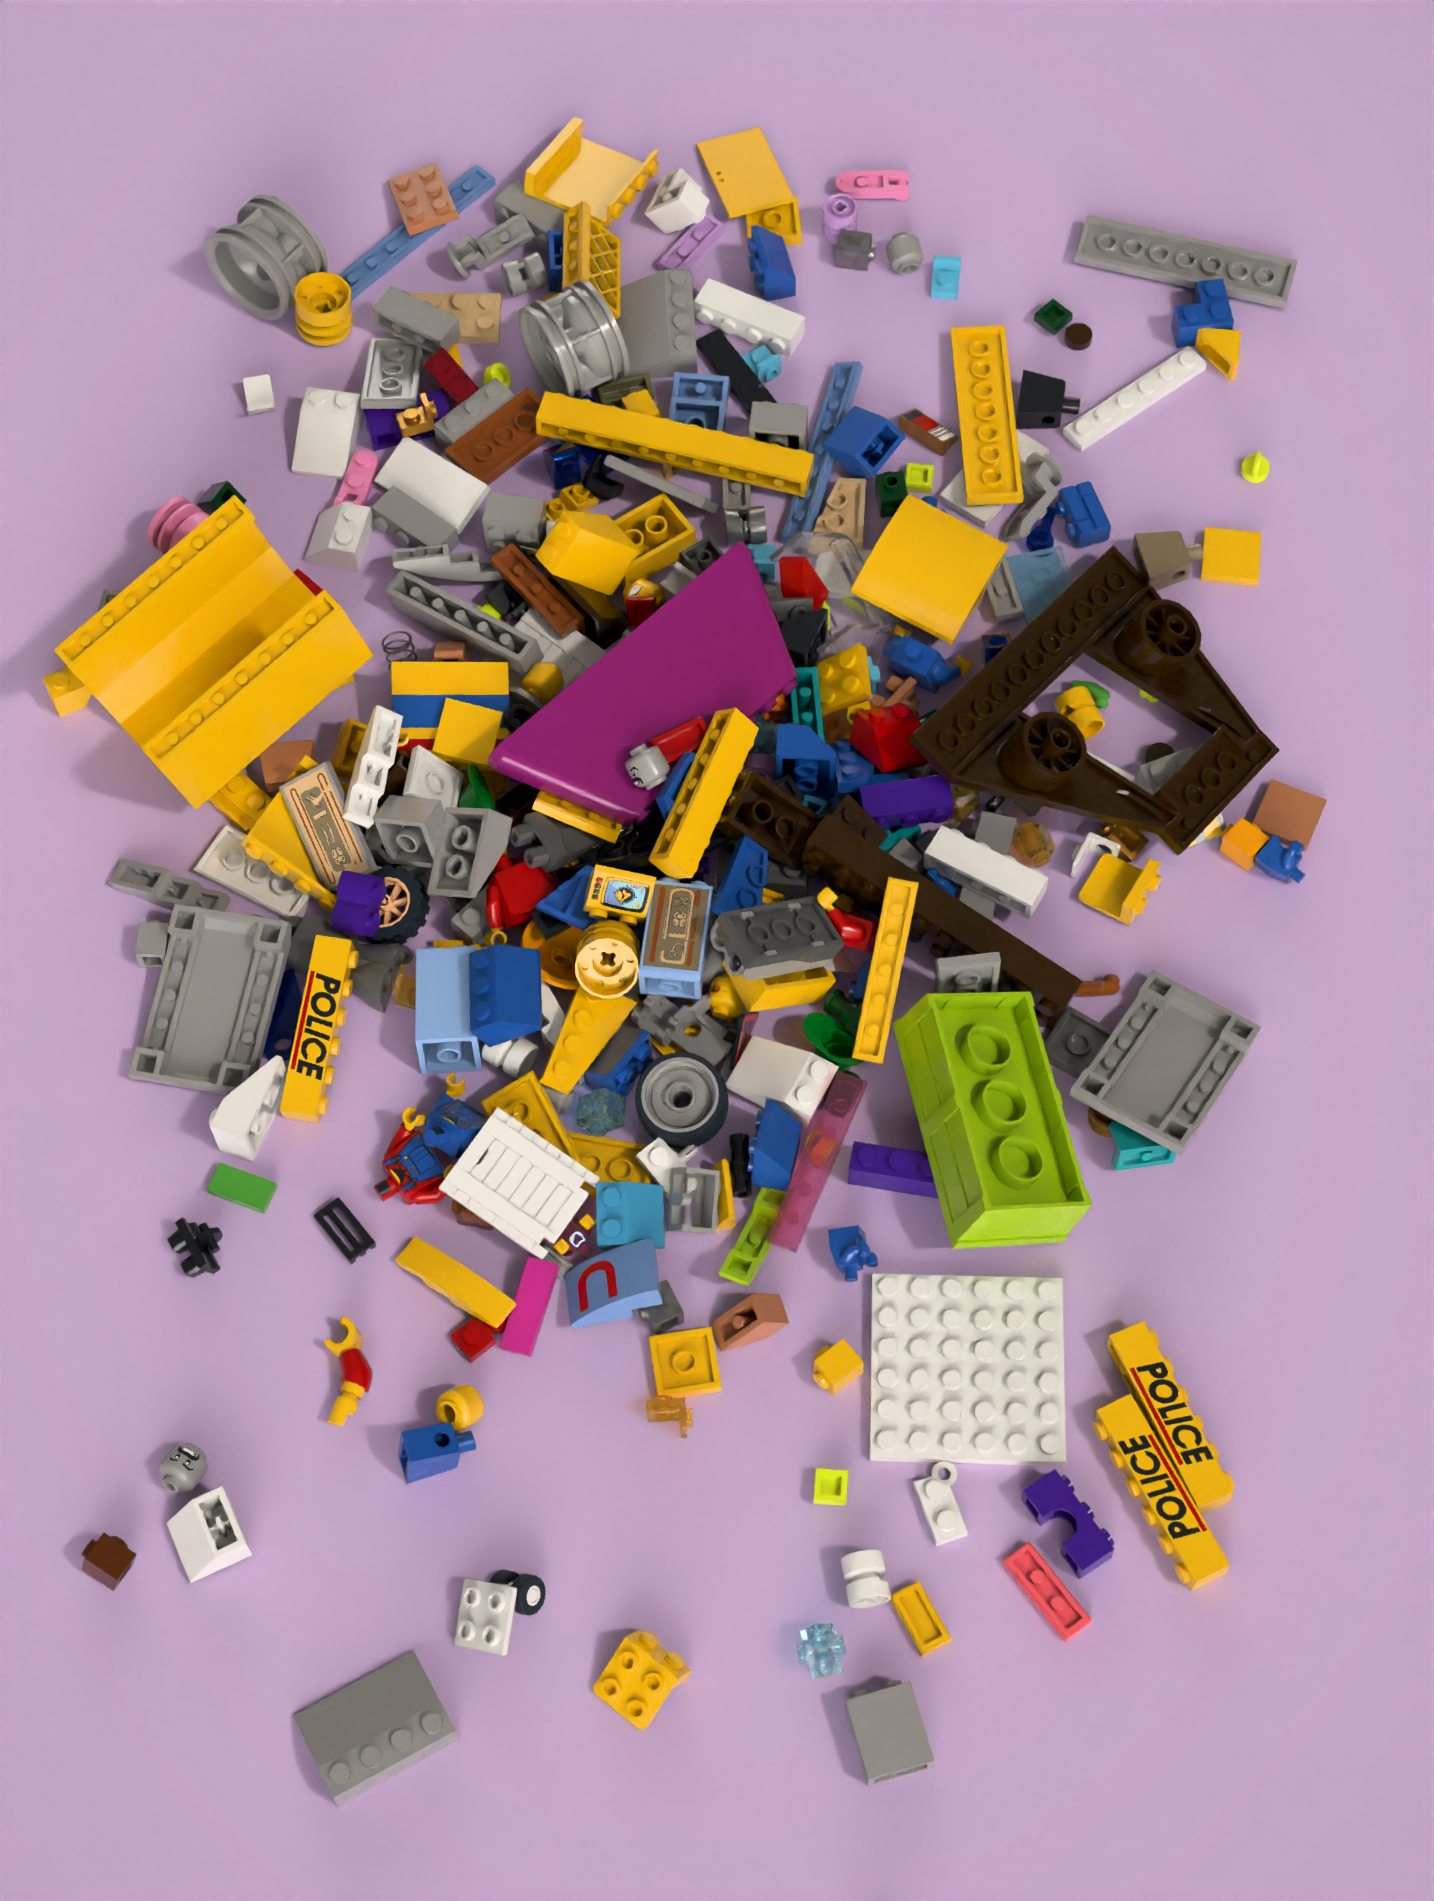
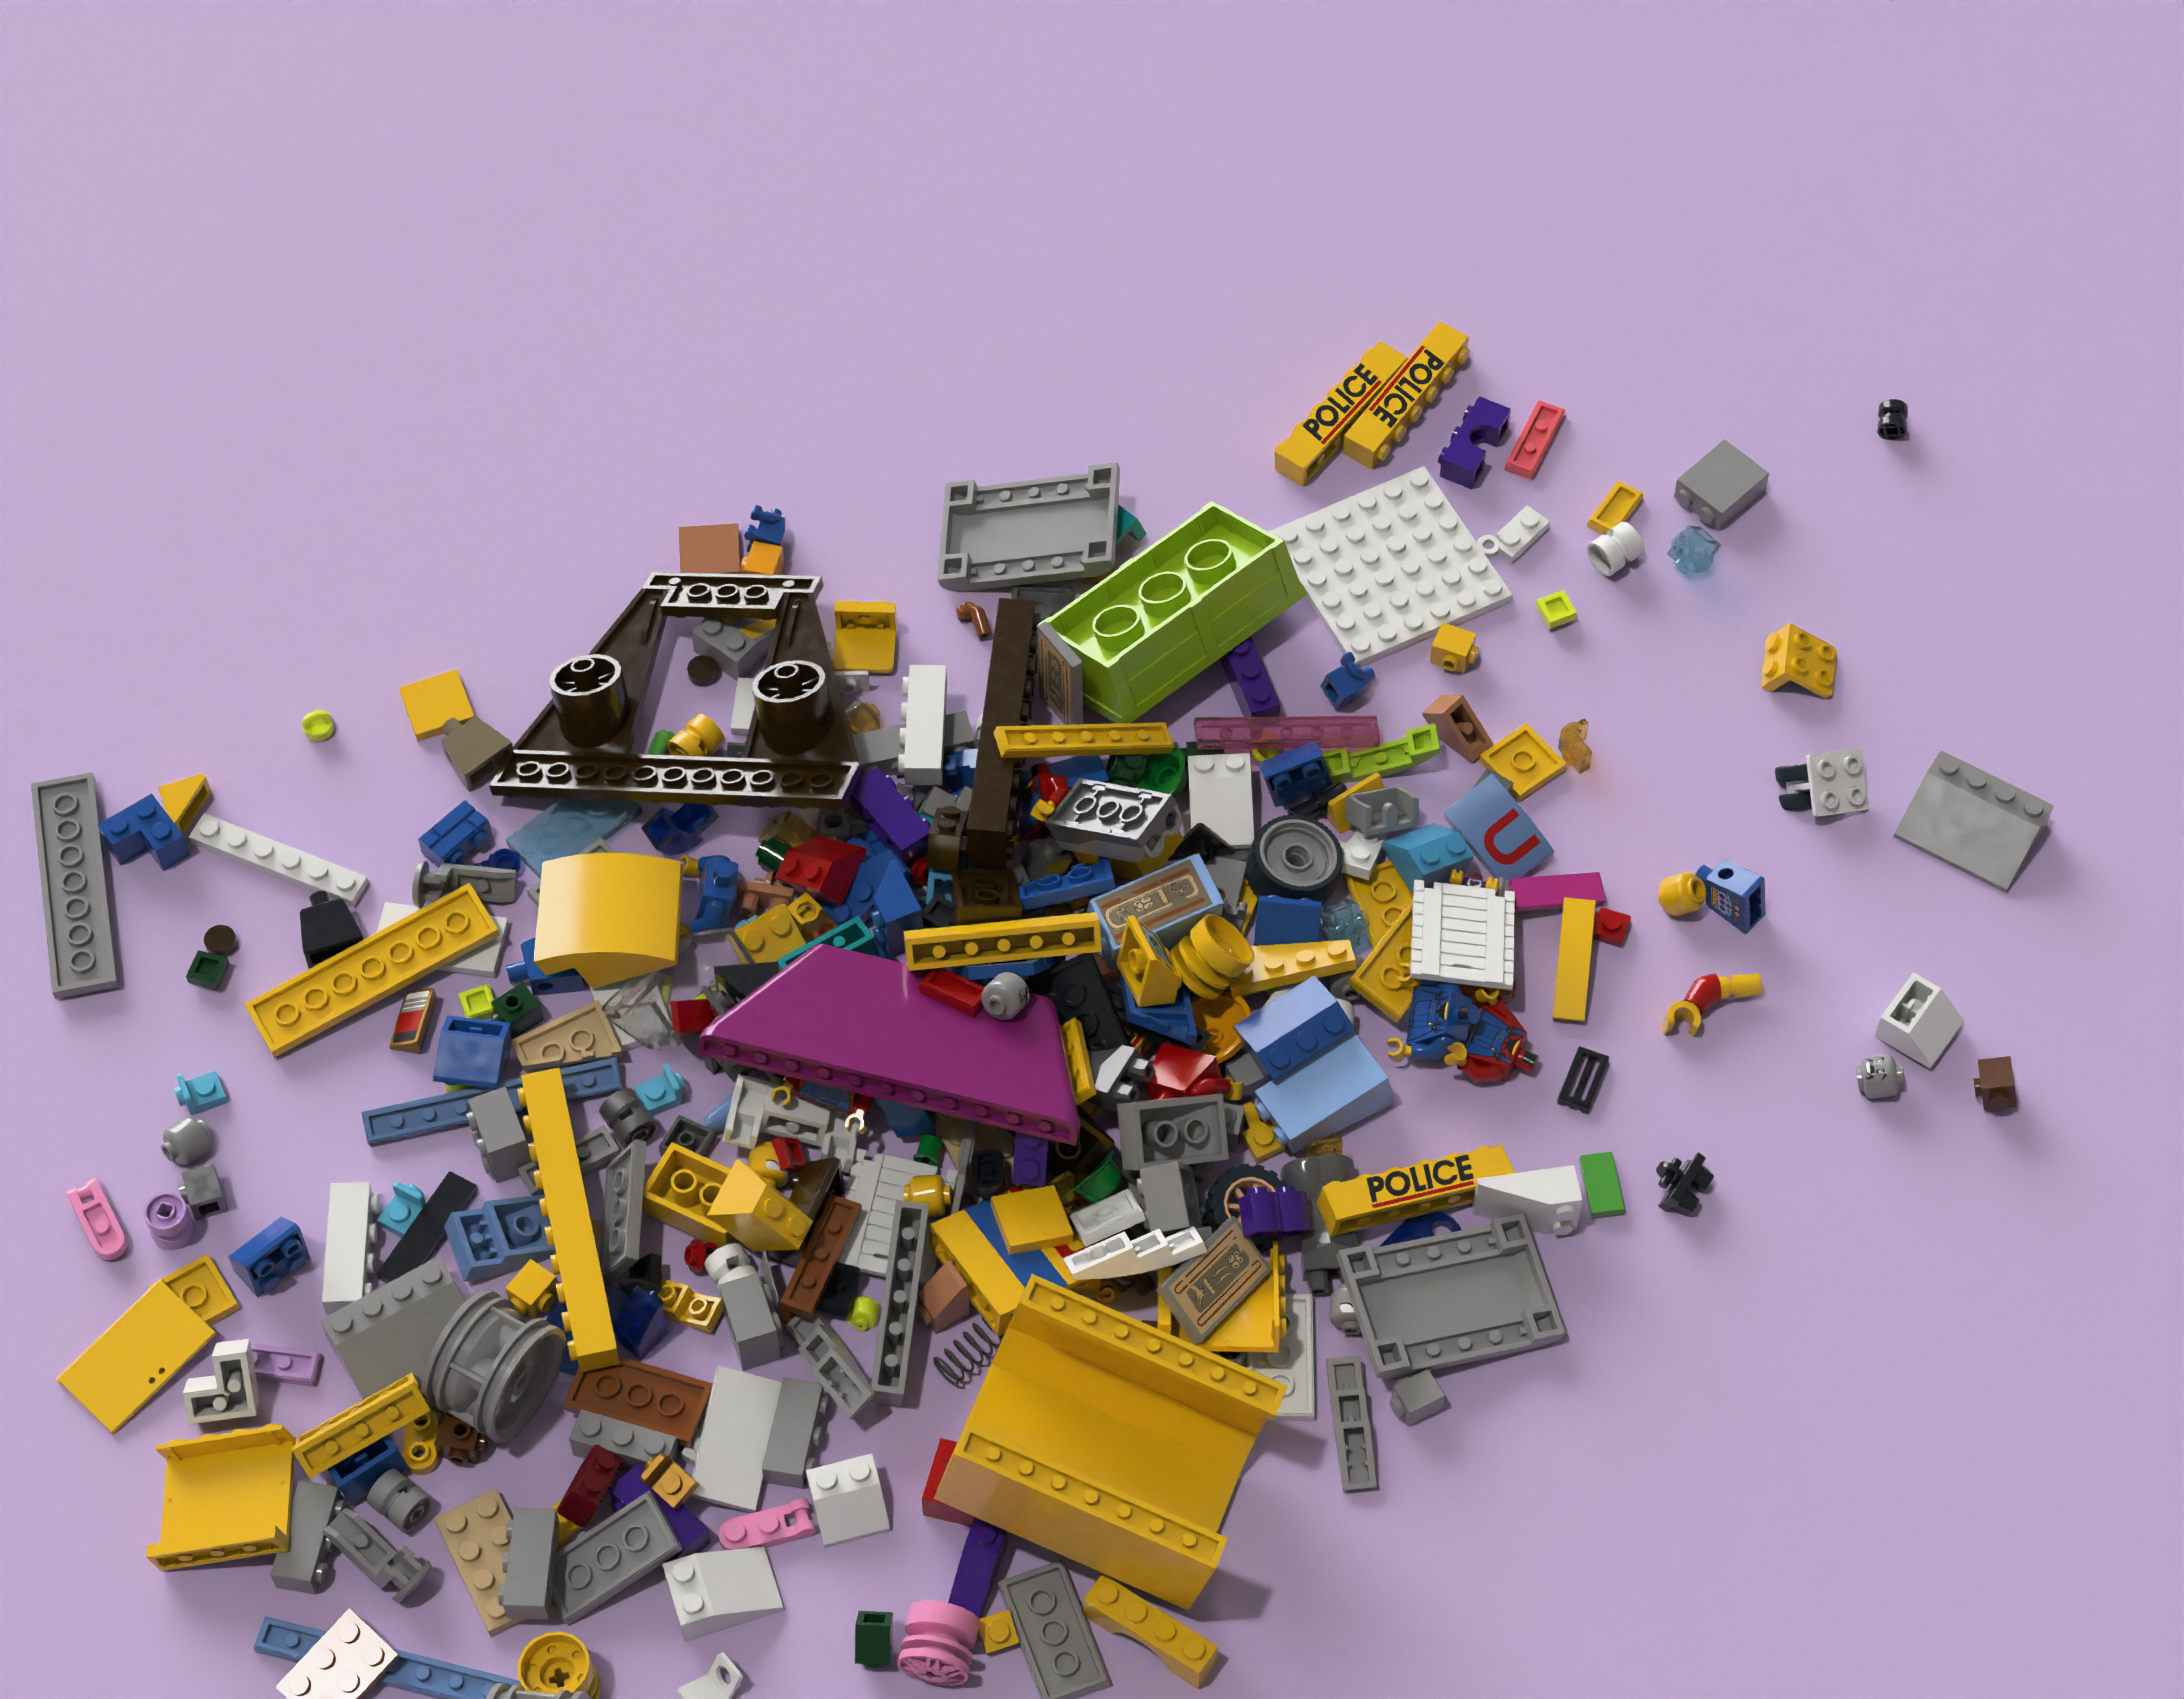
camera: 120 degrees left, 5 degrees down
(499, 371) = (554, 1457): neon yellow tile -> none

